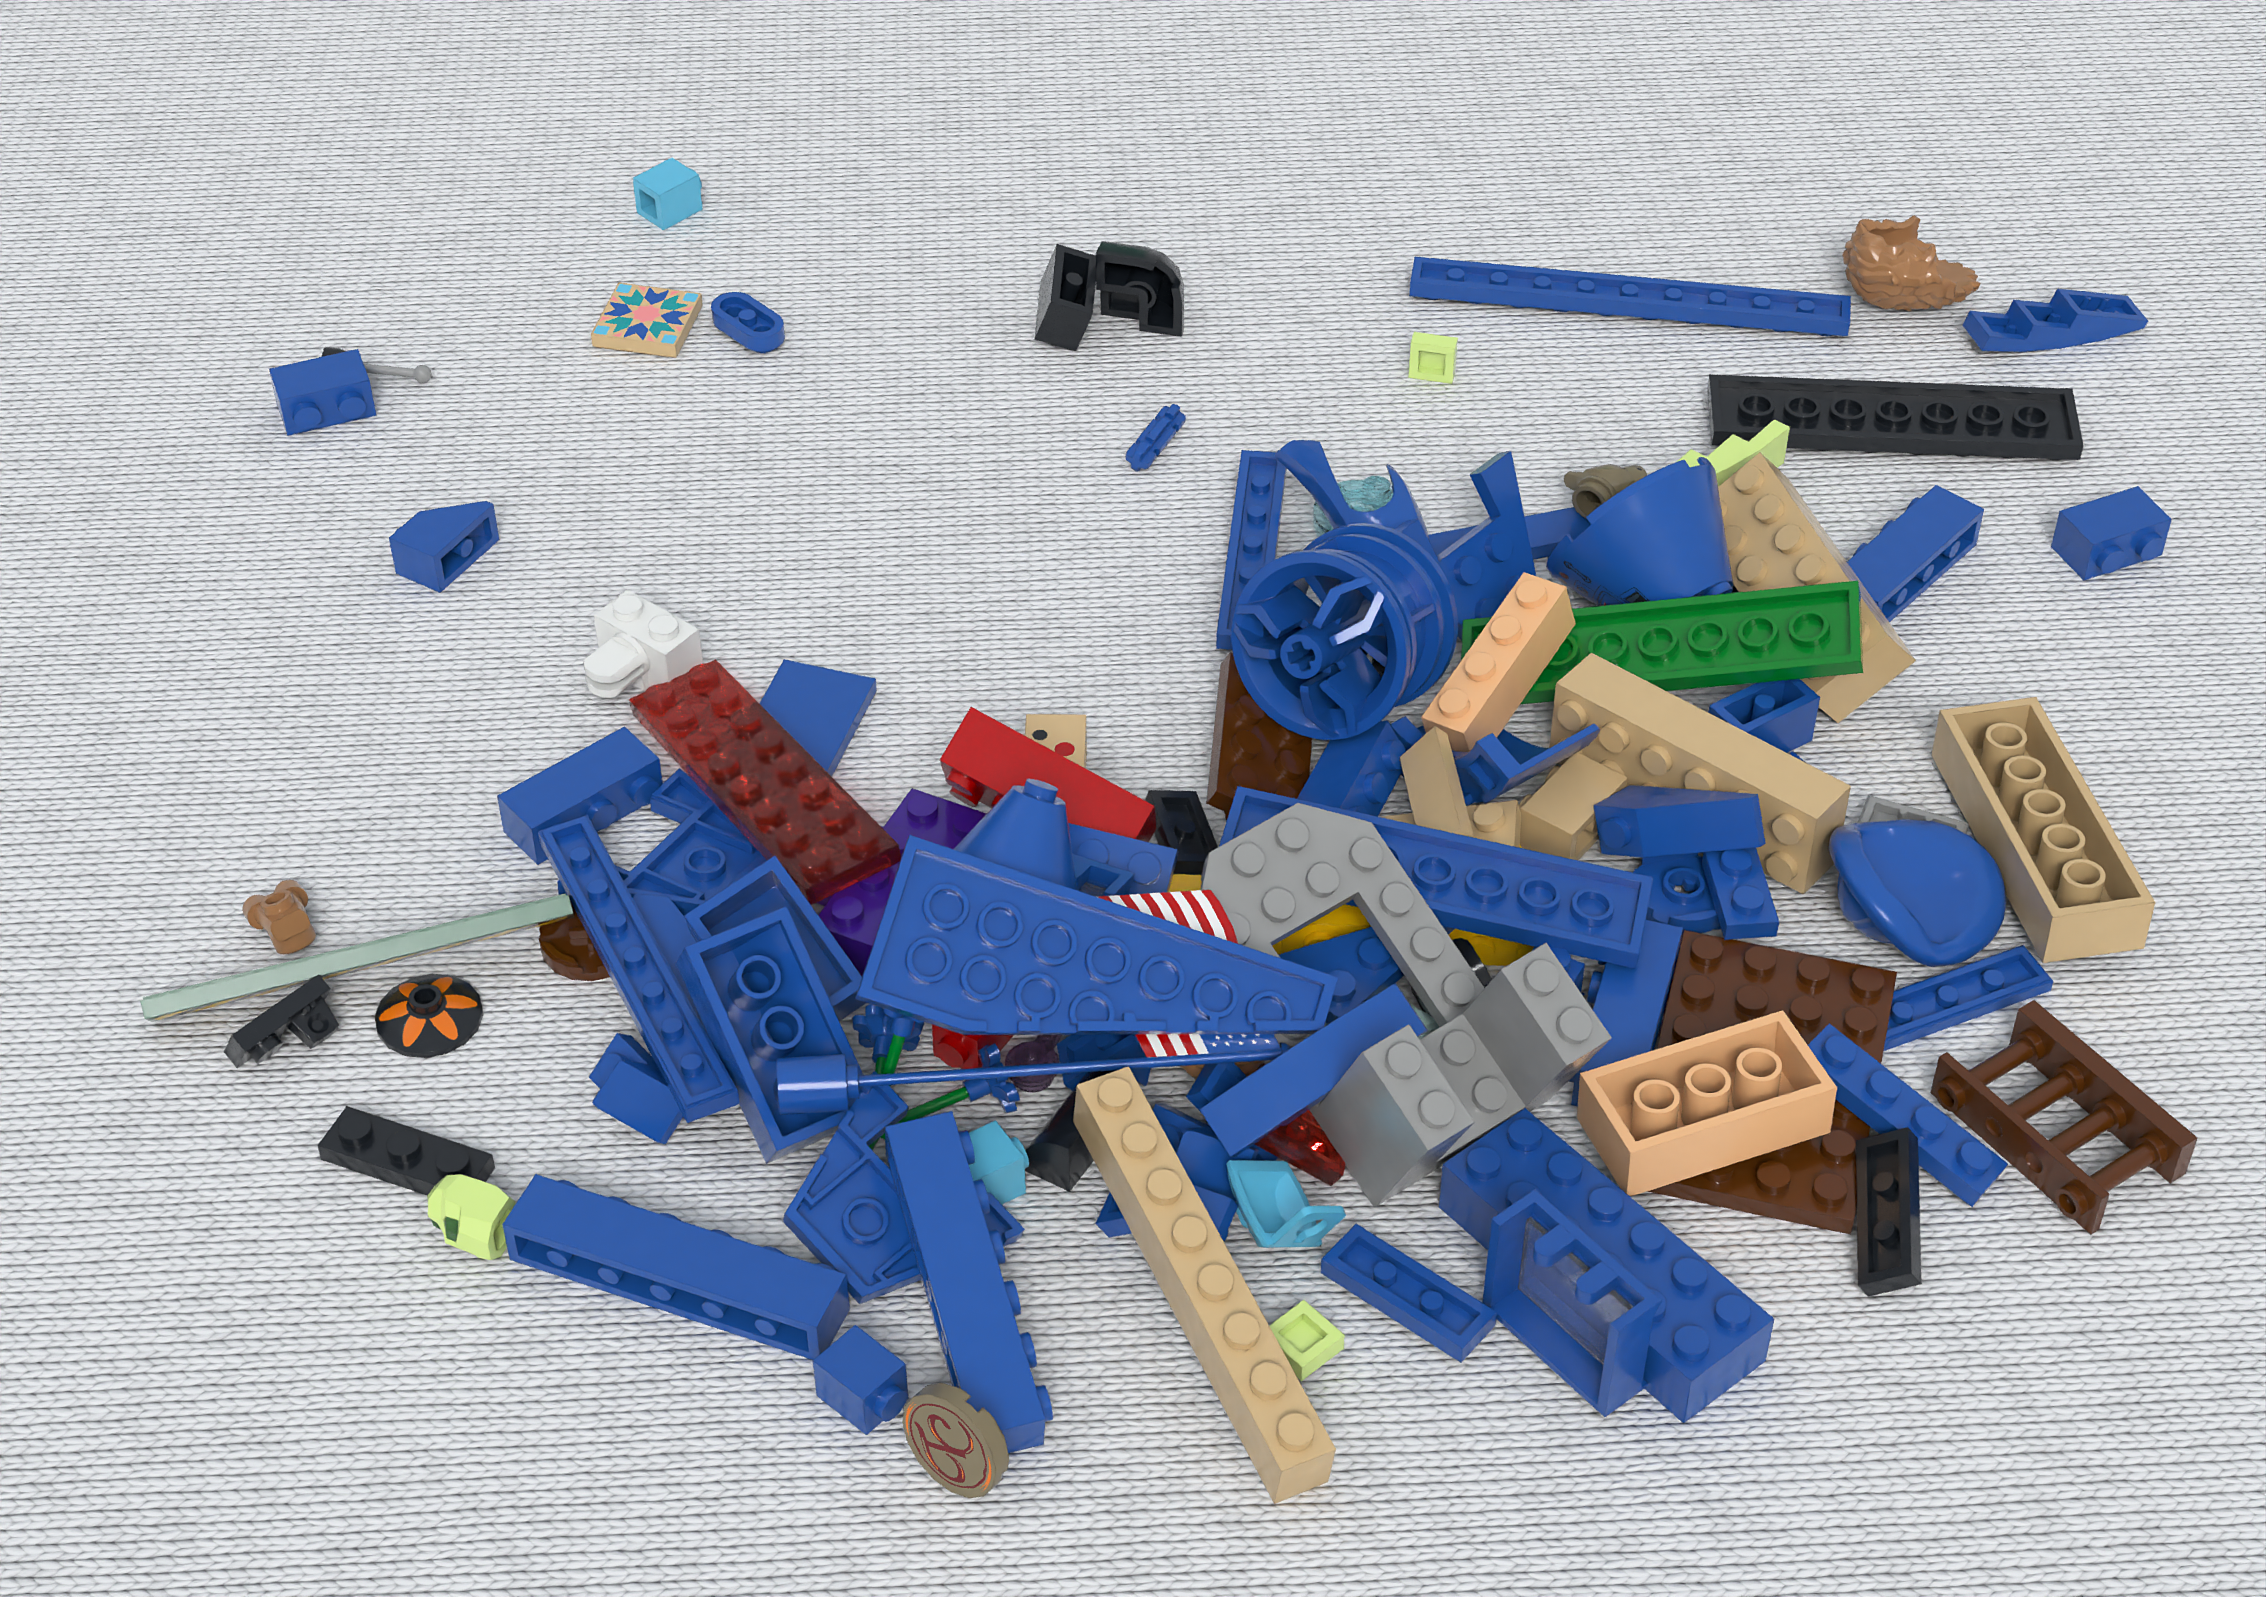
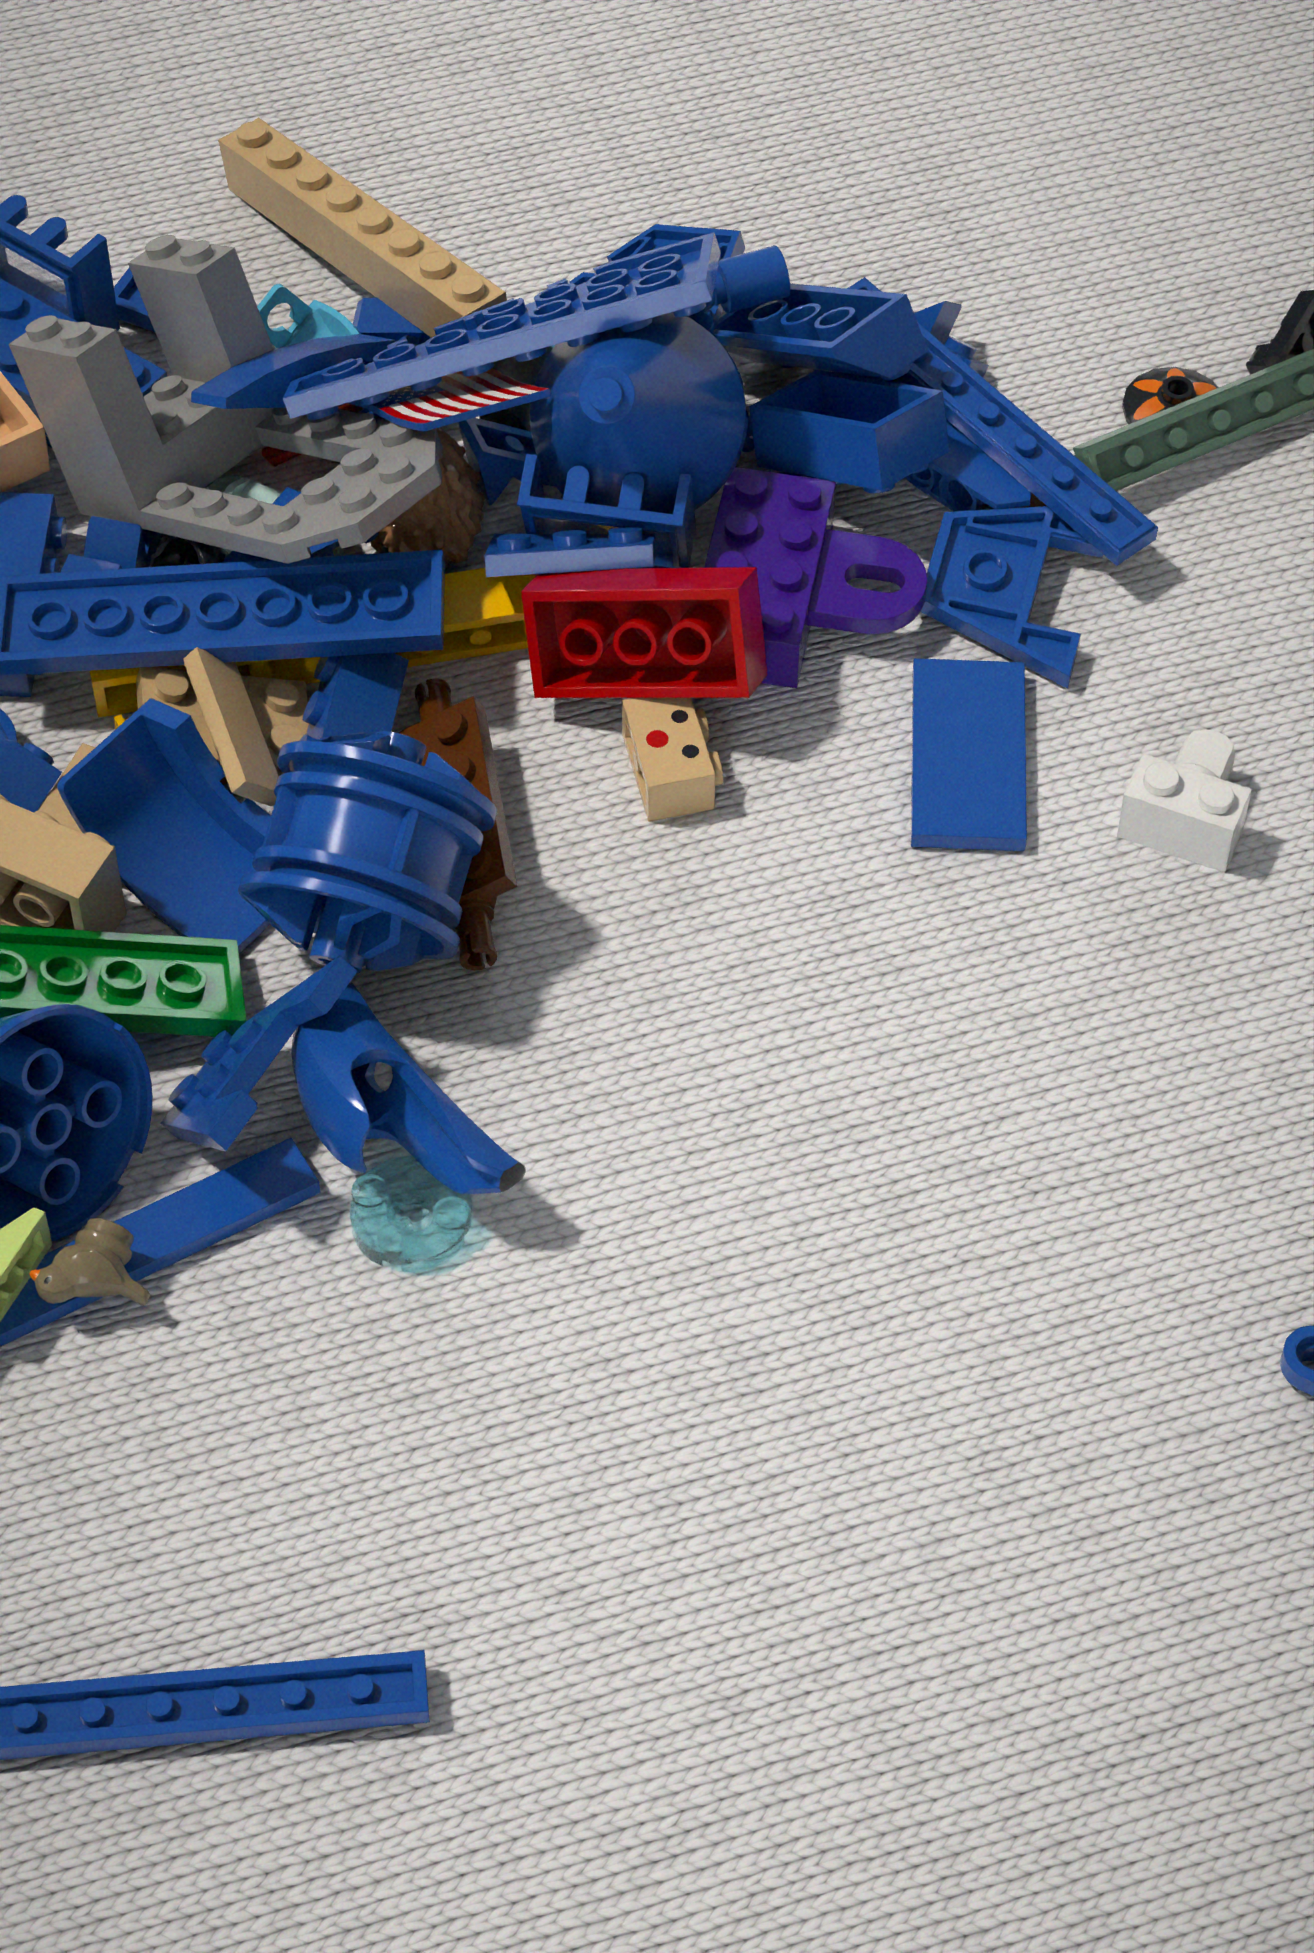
camera: 165 degrees right, 10 degrees up
(399, 1152) = (1112, 275): black plate -> none
(470, 1214) = (1020, 224): yellowish green rock -> none
(598, 781) = (1151, 623): blue brick -> none
(677, 1267) = (829, 213): blue brick -> none
(765, 781) = (967, 644): clear red plate -> none
(861, 1380) = (628, 161): blue brick -> none
(955, 1441) = (529, 105): dark tan tile -> none
(963, 1276) = (551, 196): blue brick -> none
(1066, 298) = (910, 1479): black brick -> none
(1140, 286) = (809, 1515): black brick -> none
(1155, 437) = (710, 1287): blue axle -> none
(1184, 827) = (511, 709): black plate -> none
(1252, 531) = (533, 1118): blue plate -> none
(1307, 1339) = (271, 260): yellowish green plate -> none
(1433, 357) = (363, 1504): yellowish green plate -> none
(1502, 663) = (183, 914): light nougat brick -> none

